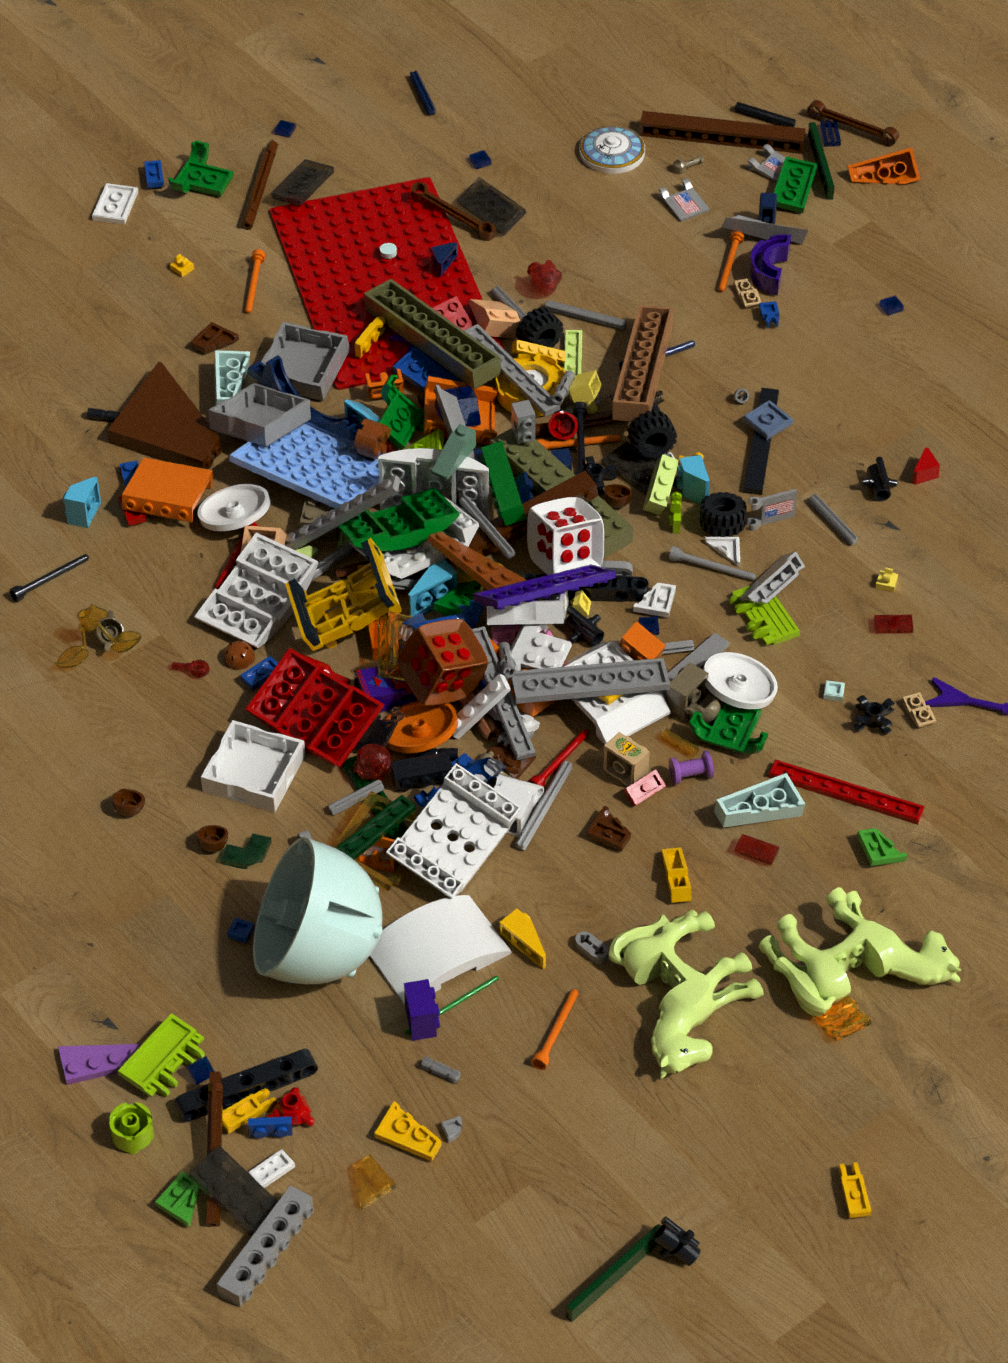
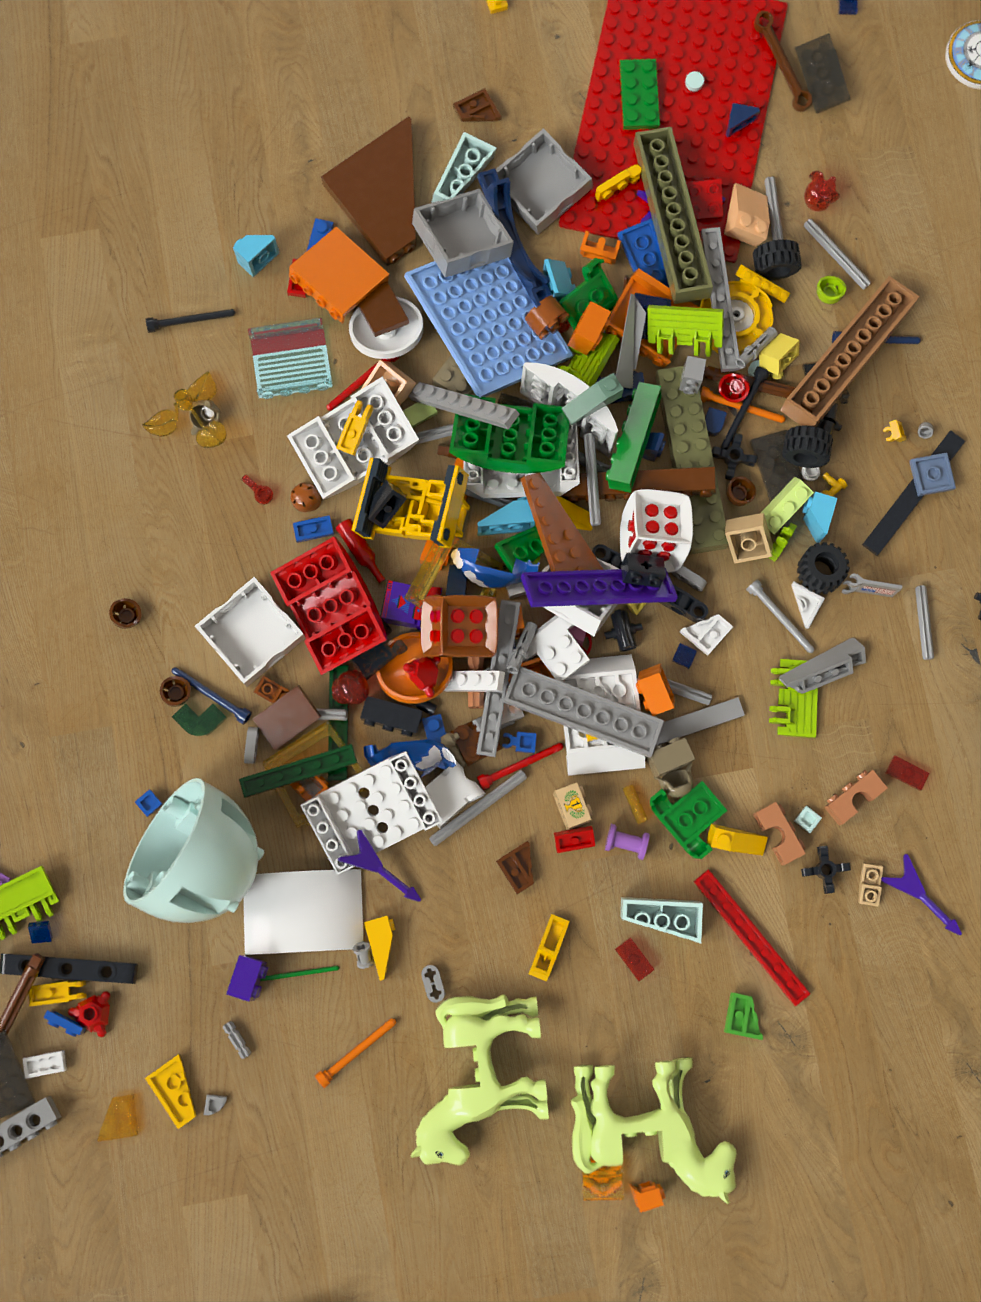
camera: 25 degrees right, 30 degrees up
(101, 414) = (331, 150): black piece -> none
(159, 565) = (290, 358): none -> clear light blue panel
(224, 496) = (383, 310): none -> reddish brown tile
(255, 580) = (354, 429): none -> yellow hinge
(258, 258) = (570, 28): orange piece -> none
(284, 829) = (241, 714): none -> dark blue piece
(307, 805) = (270, 690): none -> dark orange slope
(321, 605) = (386, 504): none -> black slope
(328, 810) = (287, 717): none -> reddish brown tile
(346, 275) = (639, 94): none -> green plate
(414, 427) = (590, 328): none -> orange brick
(432, 716) = (424, 673): none -> red rock
(471, 873) = (368, 860): none -> dark purple piece
(494, 393) = (685, 324): none -> lime hinge
(515, 950) = (363, 955): none -> light grey bush
(550, 740) = (524, 742): none -> blue plate
(573, 350) = (797, 298): yellowish green tile -> none
(573, 562) = (643, 570): none -> black brick
(597, 338) = (831, 294): none -> lime helmet
(647, 515) = (749, 538): none -> tan brick
(717, 404) = (897, 431): none -> yellow tile
(740, 680) = (725, 769): white dish -> none
(783, 724) = (736, 840): none -> yellow slope
(805, 699) = (790, 846): none -> nougat arch
(866, 644) = (841, 806): none -> nougat arch
(887, 580) = (931, 720): light yellow tile -> none
(887, 1003) = (648, 1195): none -> orange window

